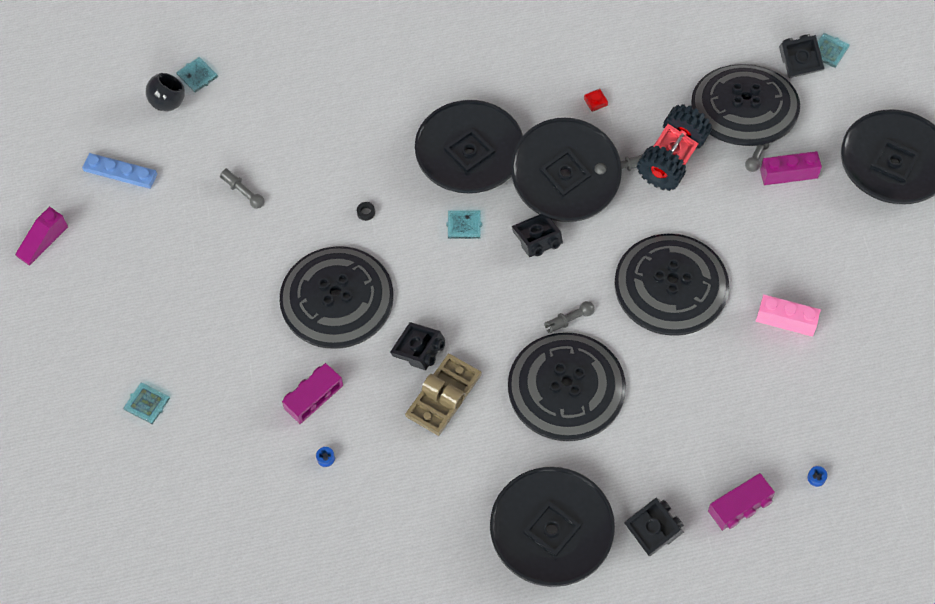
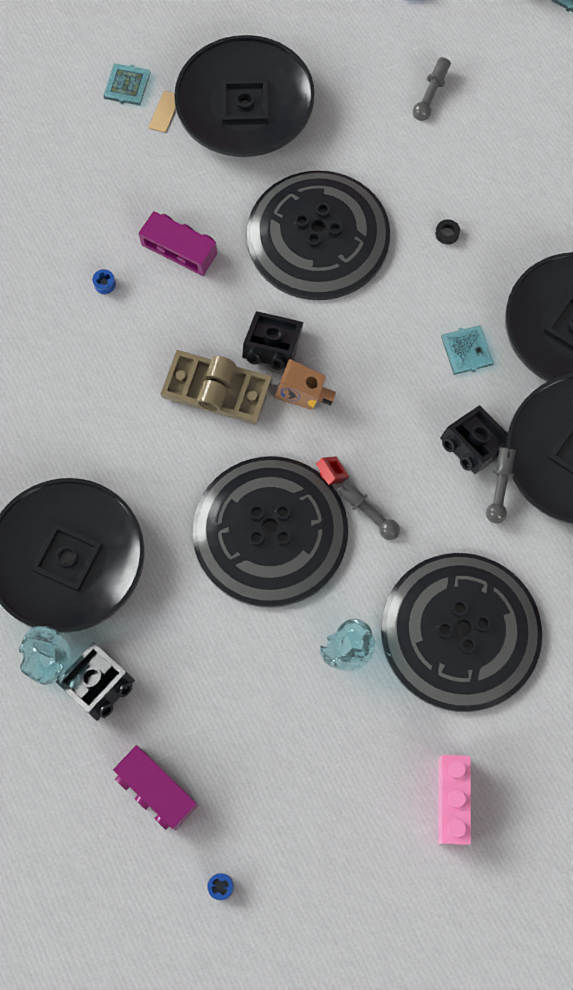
camera: 75 degrees right, 10 degrees up
(183, 381) = (163, 112): none -> tan sticker
(194, 291) = (237, 70): none -> black dish
(464, 334) = (303, 386): none -> medium nougat torso
(534, 332) = (332, 470): none -> red plate
(593, 238) = (496, 511): none -> dark grey pin
(628, 556) = (44, 654): none -> clear light blue piece
(668, 350) = (349, 646): none -> clear light blue piece

